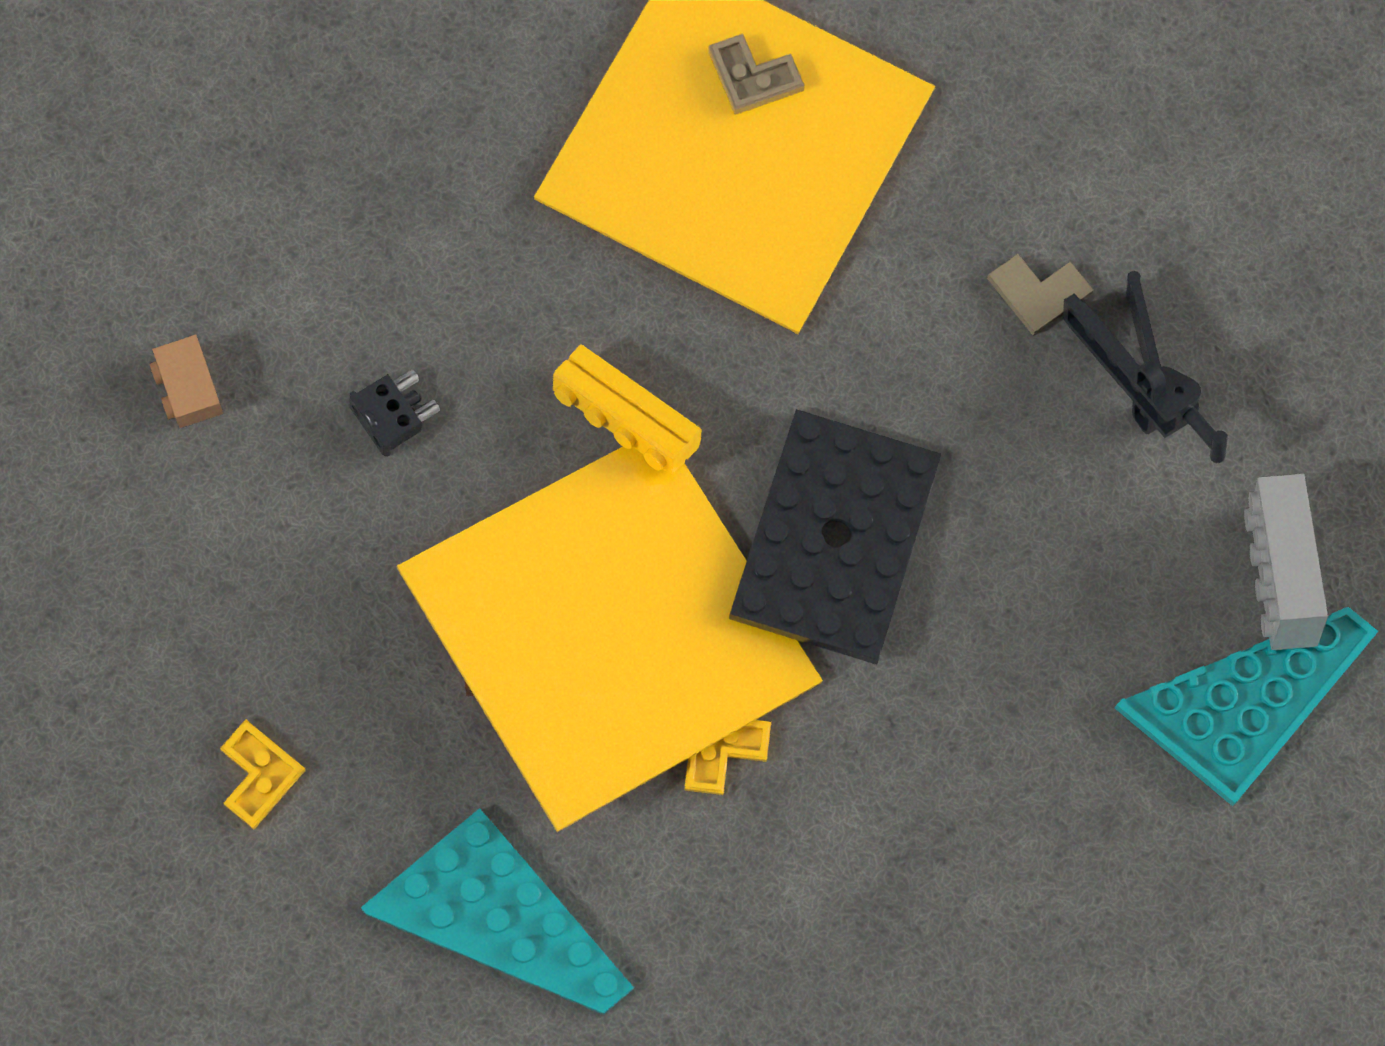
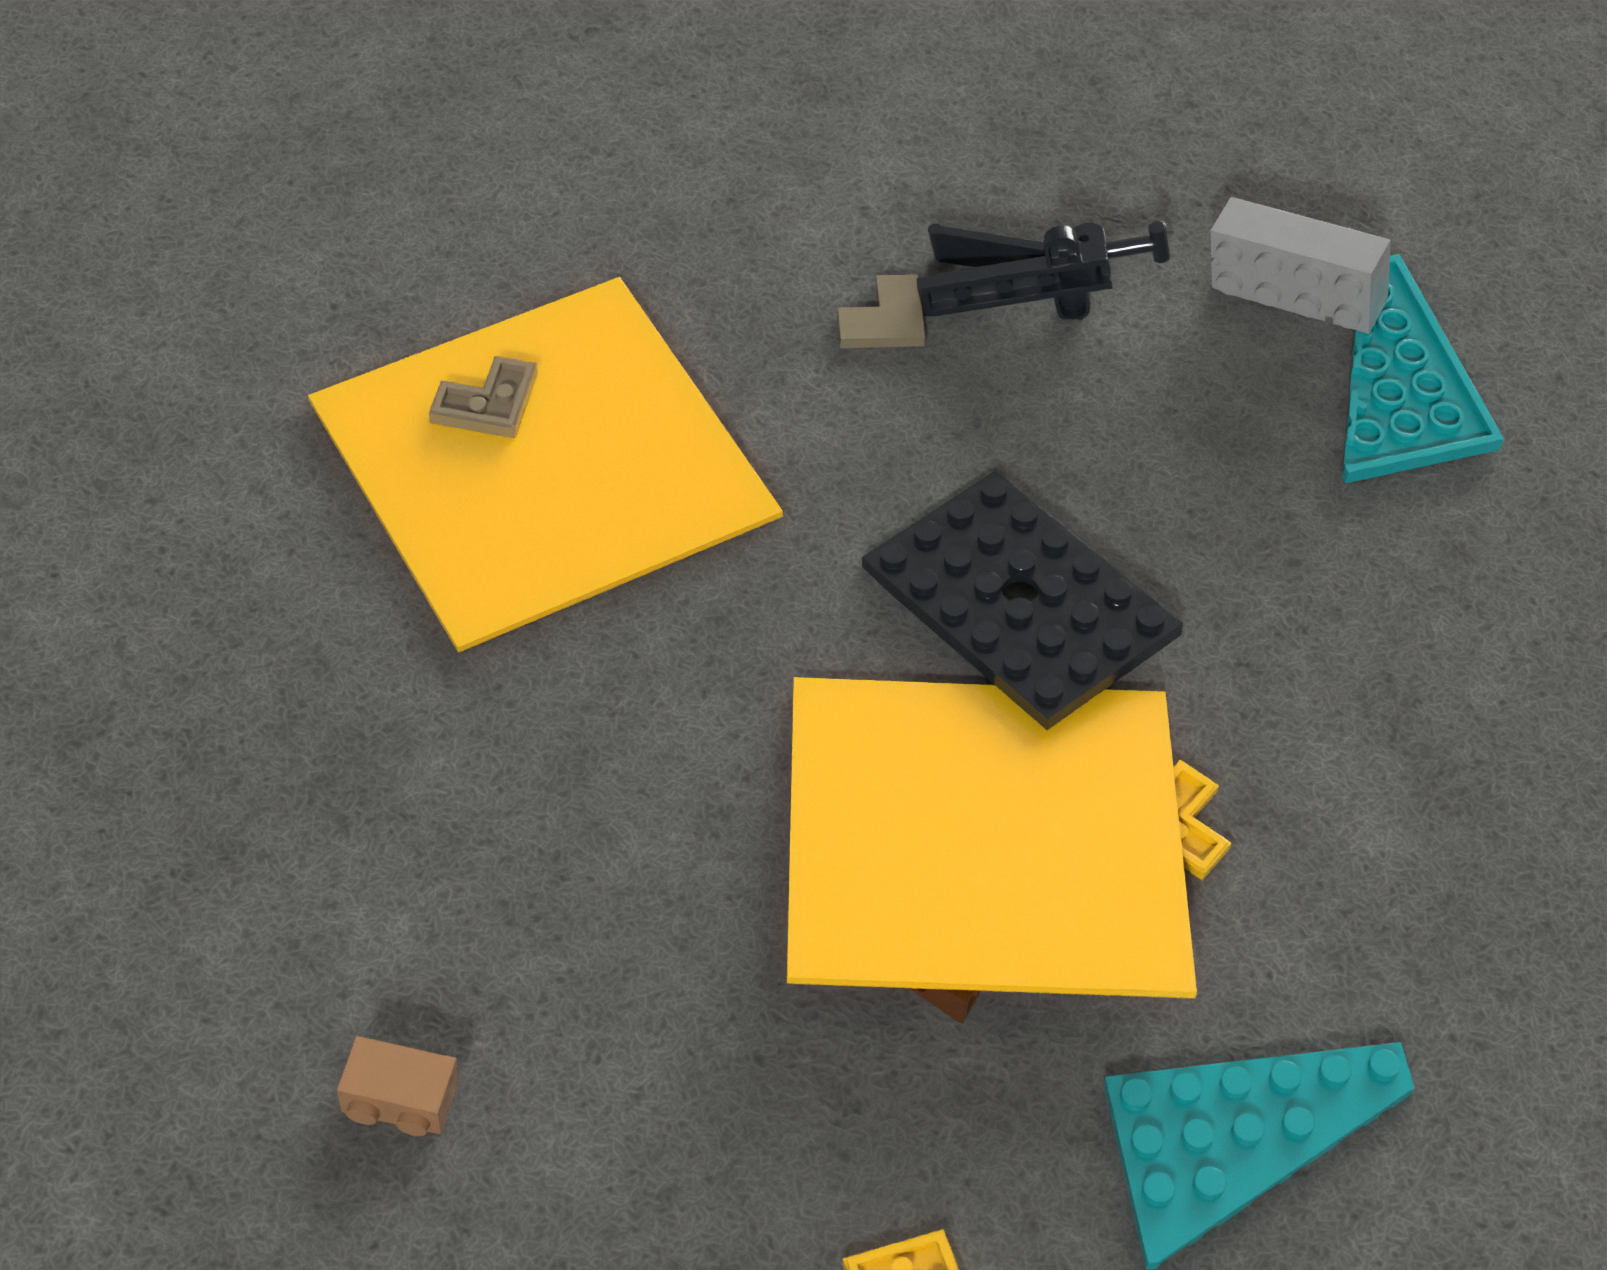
camera: 55 degrees left, 20 degrees down
(384, 424) = (589, 910): black piece -> none
(626, 410) = (759, 687): yellow brick -> none

